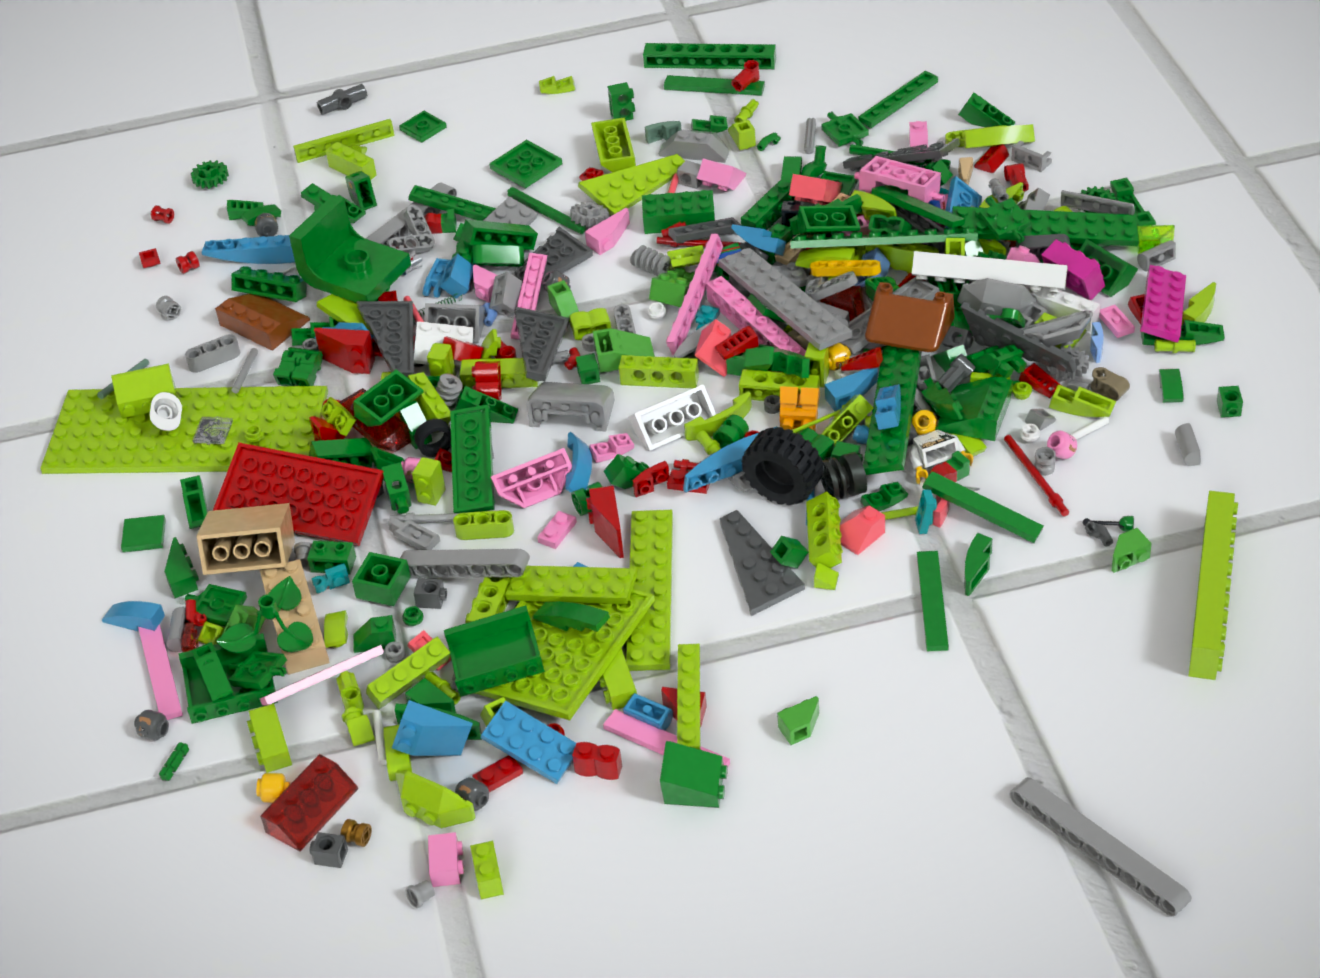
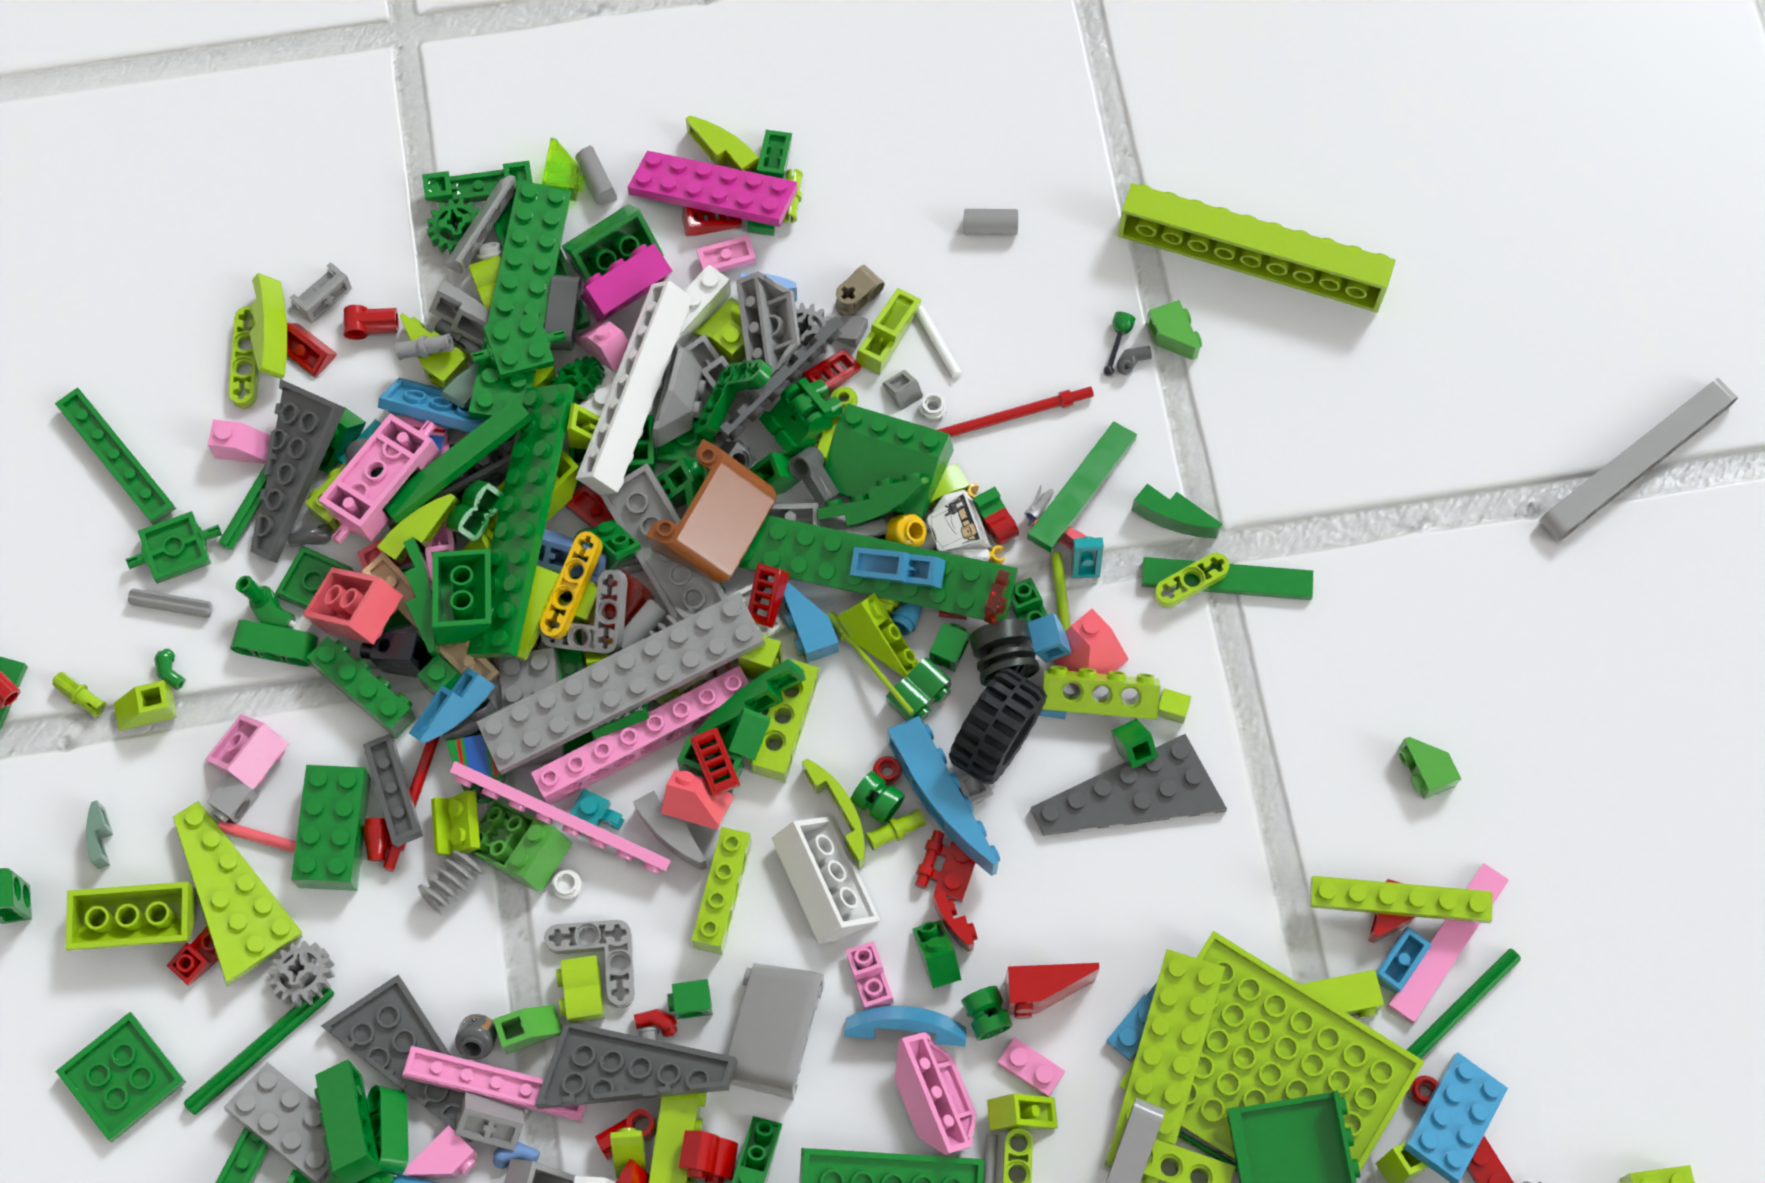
camera: 90 degrees left, 25 degrees up
(524, 525) = (1021, 1112): none -> lime slope
(573, 615) = (1249, 1046): green slope -> none
(597, 760) = (1484, 1026): red brick -> none
(608, 232) = (359, 949): bright pink slope -> none
(613, 343) = (660, 941): bright green slope -> none
(628, 759) = (1464, 1003): none -> green axle
(652, 557) = (1141, 936): lime plate -> none
(692, 776) = (1528, 910): green slope -> none
(695, 146) = (148, 787): light grey wedge -> none
(715, 124) = (95, 759): green slope -> none
(772, 409) = (806, 729): dark grey bush -> none
(793, 416) = (845, 696): light orange hips -> none
(857, 496) = (1049, 638): none -> dark azure brick
(870, 448) = (996, 603): none -> clear red plate
(925, 582) = (1212, 578): none -> lime beam
(965, 169) = (342, 390): tan slope -> none
(983, 114) = (197, 339): green slope -> none
(1045, 460) = (995, 390): light grey wheel -> none
(1063, 444) = (974, 369): bright pink head -> none
(1171, 385) = (868, 215): green slope -> none
(1229, 401) = (918, 166): green brick -> none

